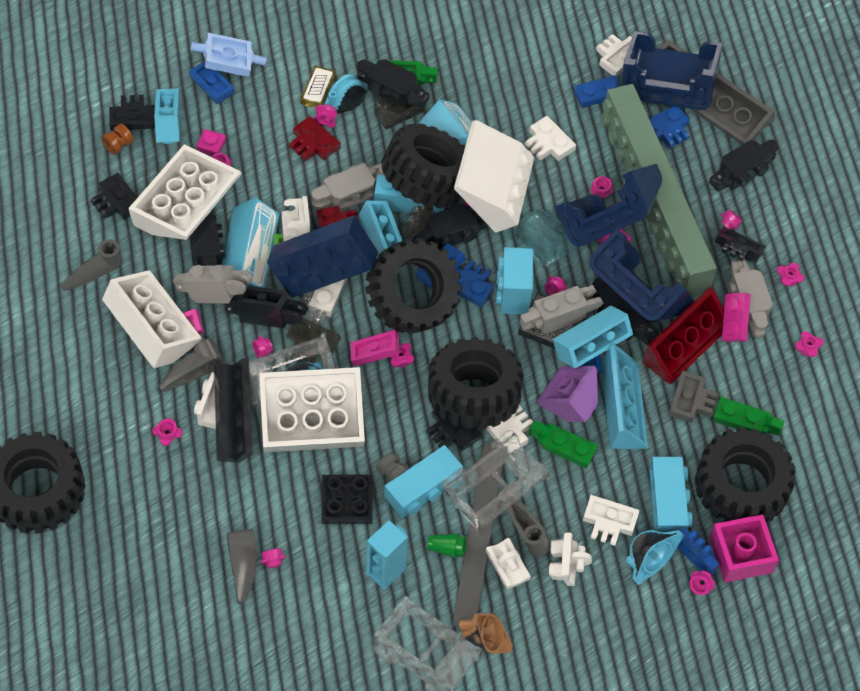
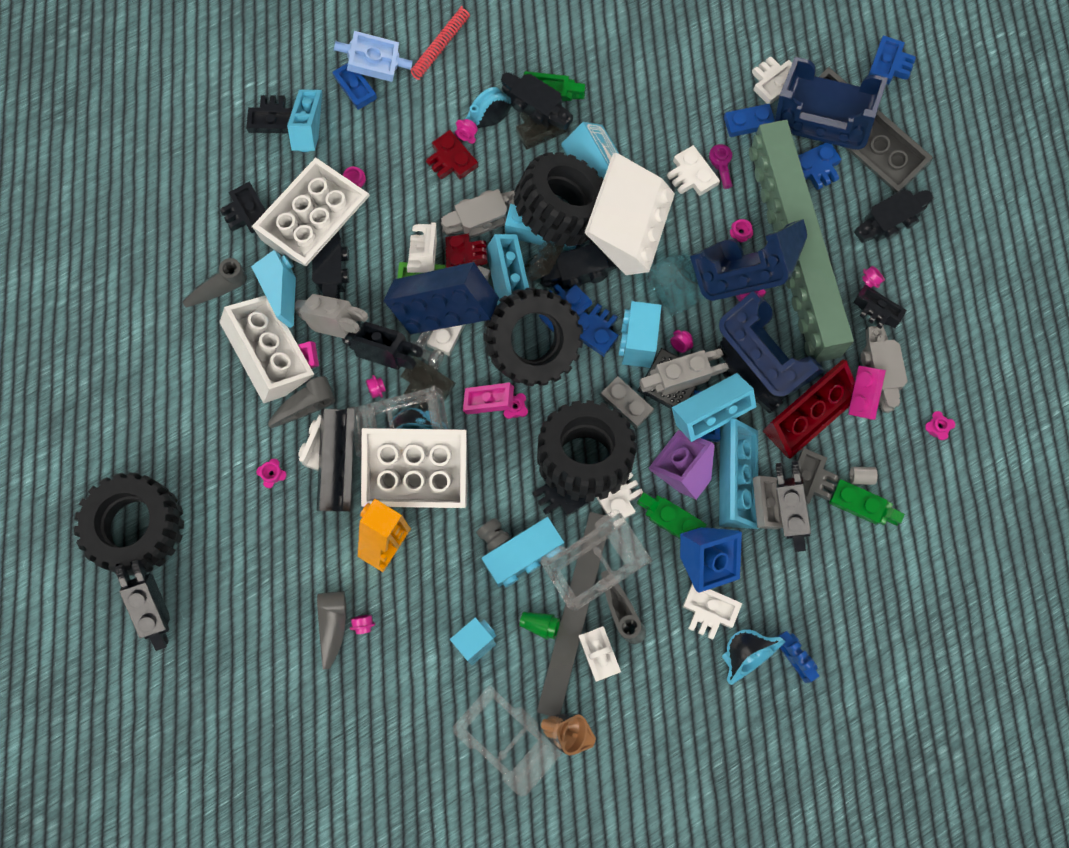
camera: 10 degrees right, 15 degrees up
(59, 551) = (144, 604): none -> black hinge
(117, 139) = (248, 146): dark orange wheel -> none
(158, 258) = (278, 284): none -> medium azure slope
(211, 142) = (347, 153): dark pink plate -> none
(251, 239) = (375, 269): medium azure slope -> none
(285, 469) = (380, 534): none -> light orange wedge
(302, 27) = (436, 41): none -> coral piece
(318, 87) = (461, 97): tile -> none
(347, 499) = (444, 562): black tile -> none
(511, 341) = (627, 402): none -> light grey plate
(572, 559) = (663, 640): white hips -> none
(574, 125) = (720, 157): none -> magenta plate
(605, 469) = (711, 556): none -> blue slope
(654, 421) = (767, 502): none -> light grey plate
(669, 494) = (775, 589): medium azure brick -> none
(678, 418) = (793, 506): none -> hinge
(697, 587) = (797, 690): dark pink plate -> none
(727, 31) = (891, 61): none -> blue hinge
(742, 392) = (863, 475): none -> light grey hinge
(743, 548) = (847, 658): dark pink brick -> none
(748, 449) = (884, 559): black tyre -> none
(787, 279) = (922, 347): dark pink plate -> none

